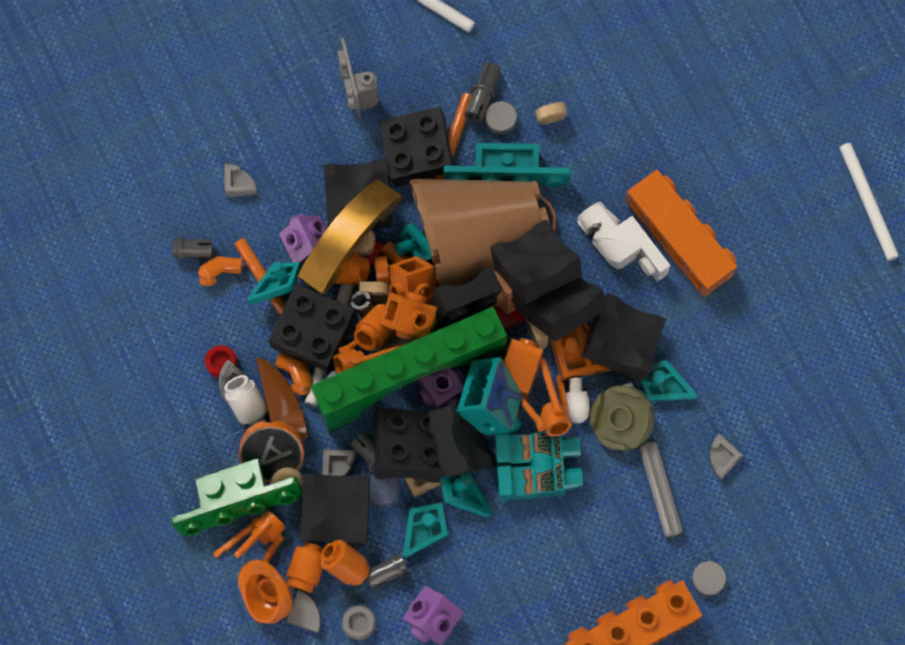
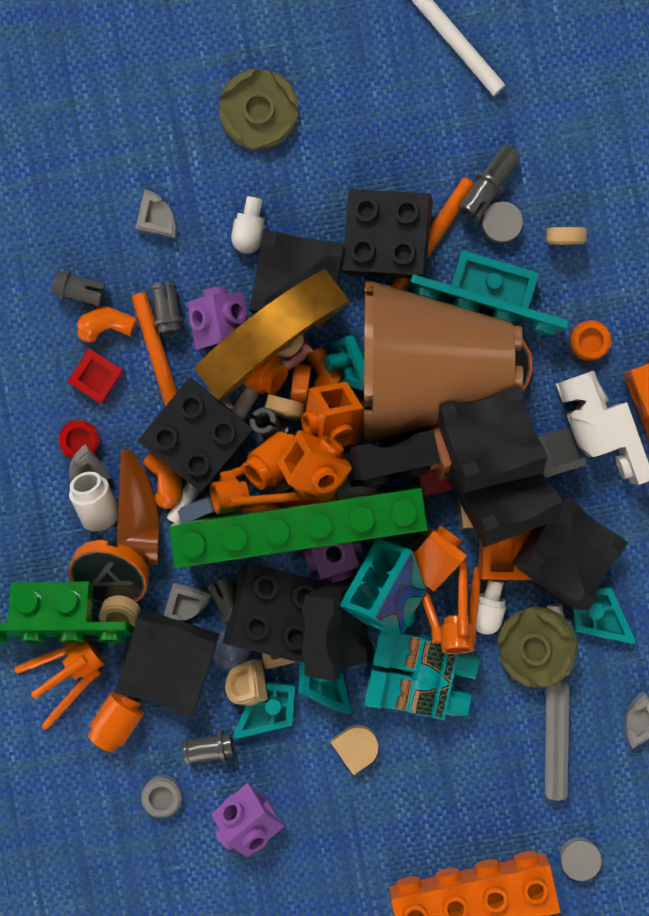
camera: 15 degrees right, 15 degrees up
(222, 310) = (96, 376): none -> red tile
(264, 592) = (60, 740): orange hat -> none
(266, 250) = (166, 310): none -> dark grey pin
(276, 282) = (168, 364): teal piece -> none
(295, 86) = (258, 109): none -> olive tile
(304, 613) = (102, 771): light grey tile -> none
(311, 170) = (248, 227): none -> white cylinder
(344, 563) = (160, 732): orange brick -> none
(360, 87) = (334, 142): light grey hinge -> none
(402, 510) = (246, 683): none -> tan tile
(504, 539) = (356, 747): none -> tan tile
(593, 184) = (589, 340): none -> orange tile
(596, 271) = (561, 452): none -> dark grey panel

